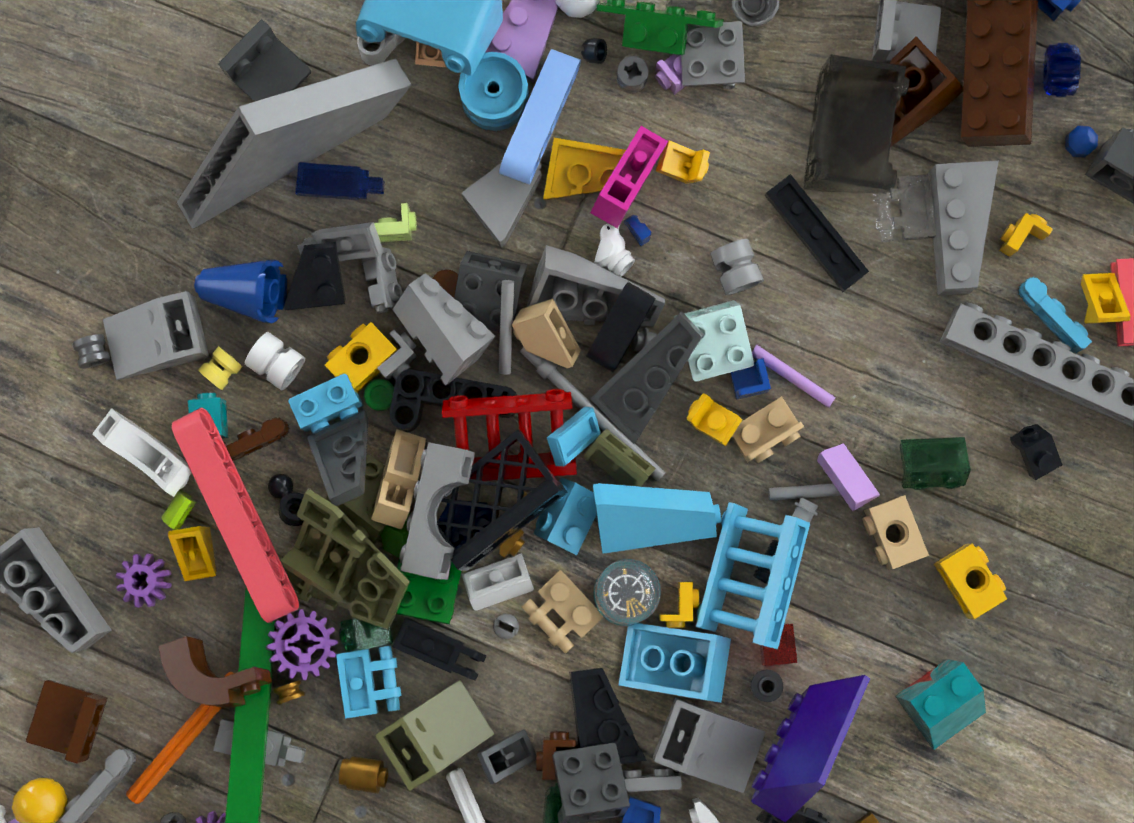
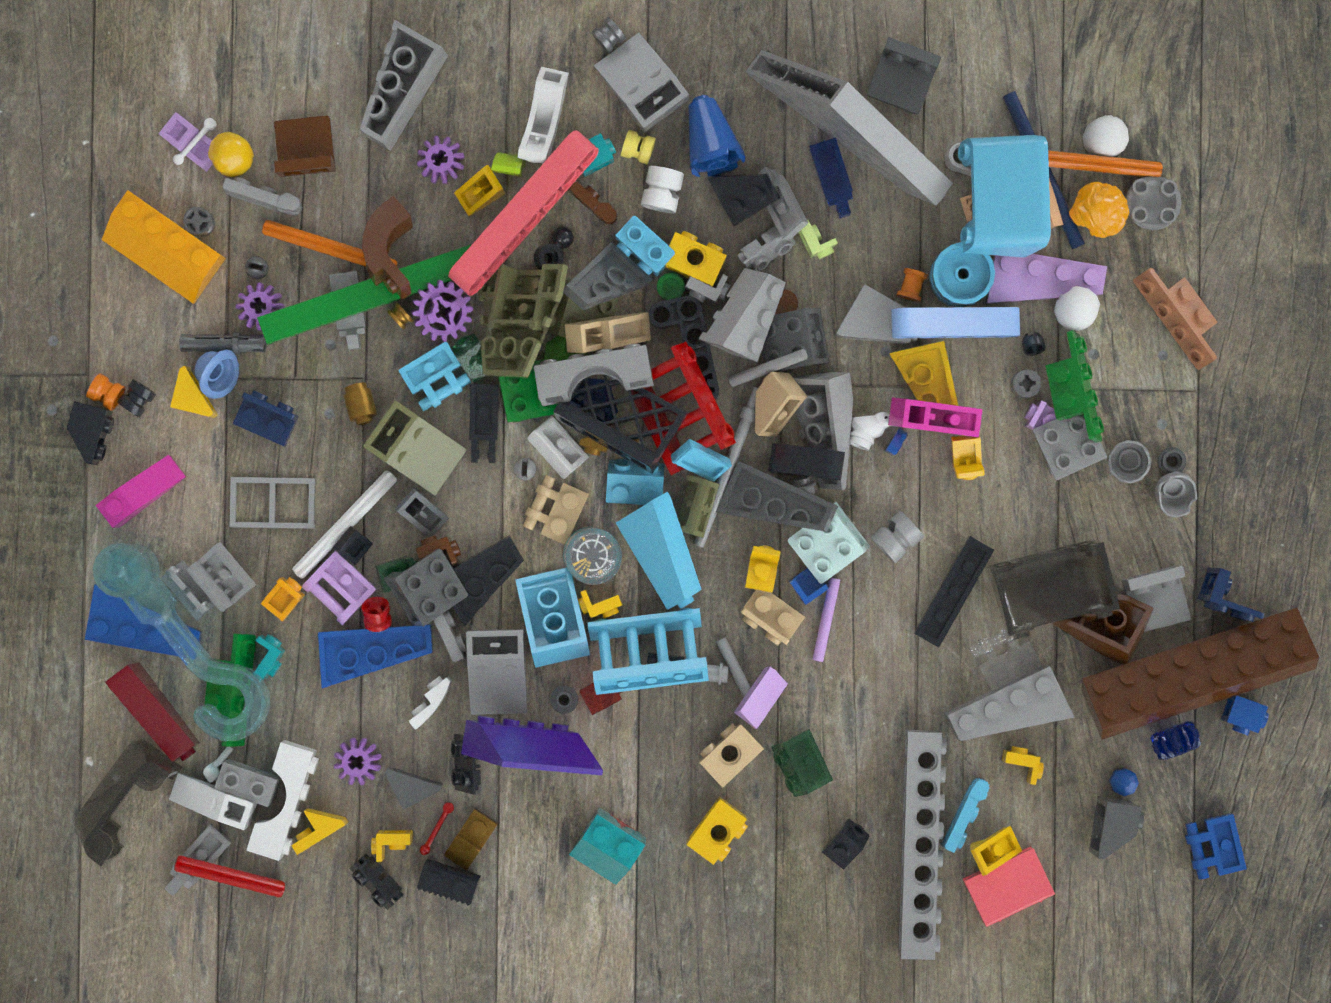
camera: 65 degrees right, 5 degrees up
(482, 147) = (912, 285): none -> orange bush

